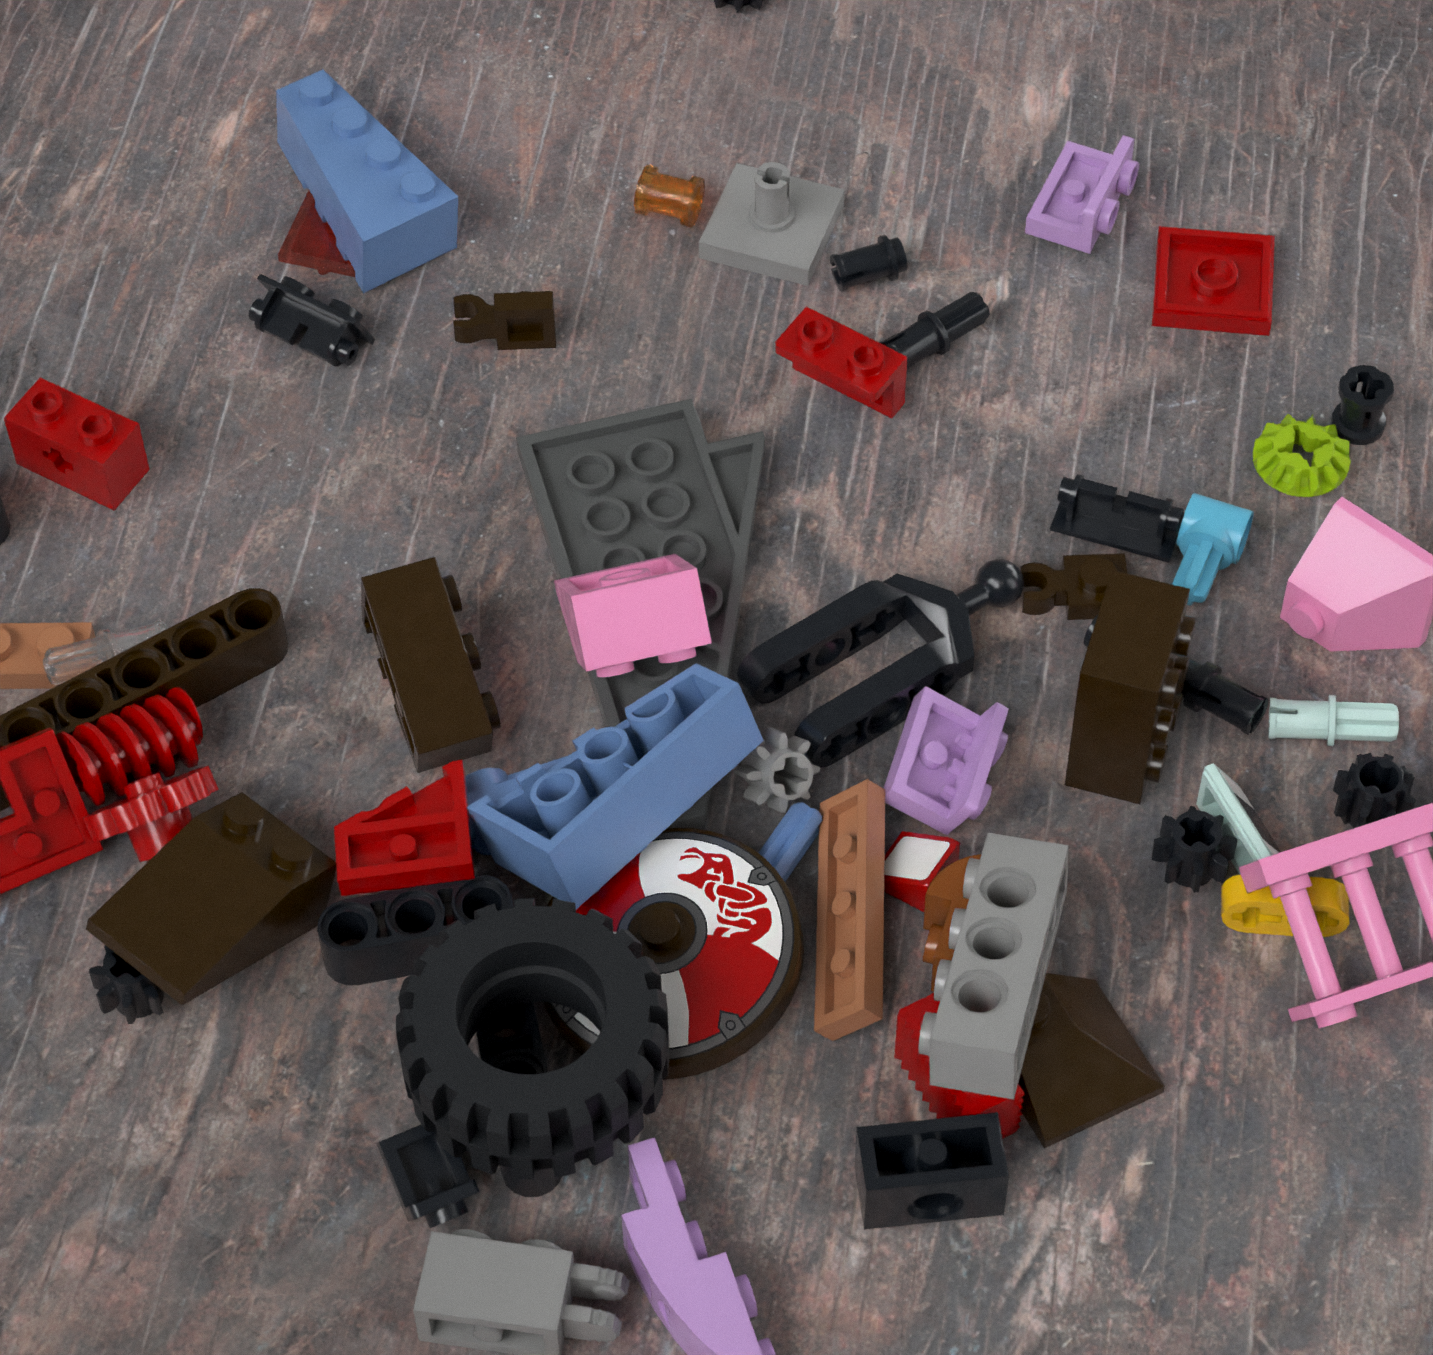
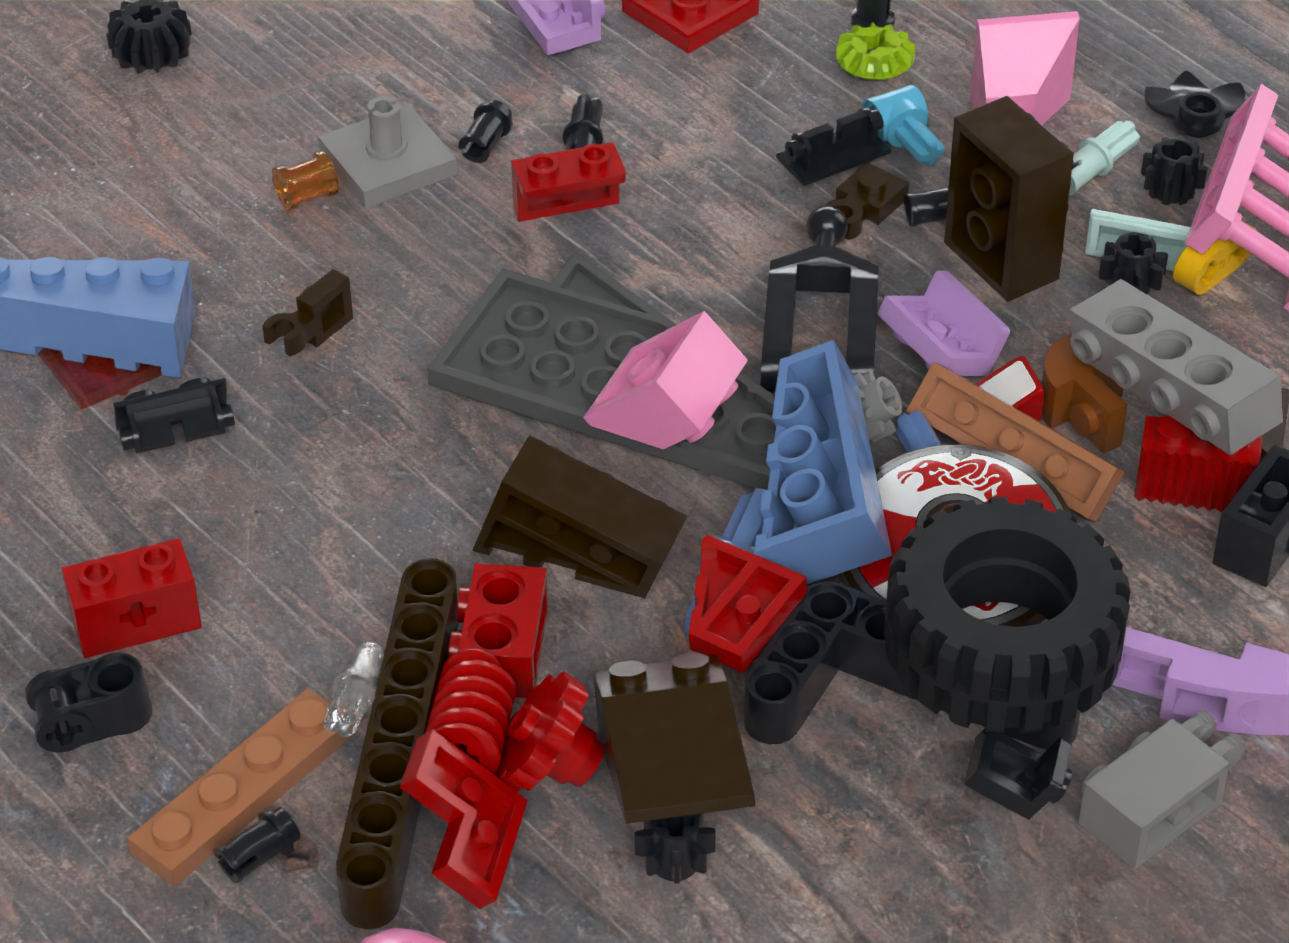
camera: 50 degrees left, 10 degrees down
(269, 709) = (506, 617): none -> red brick

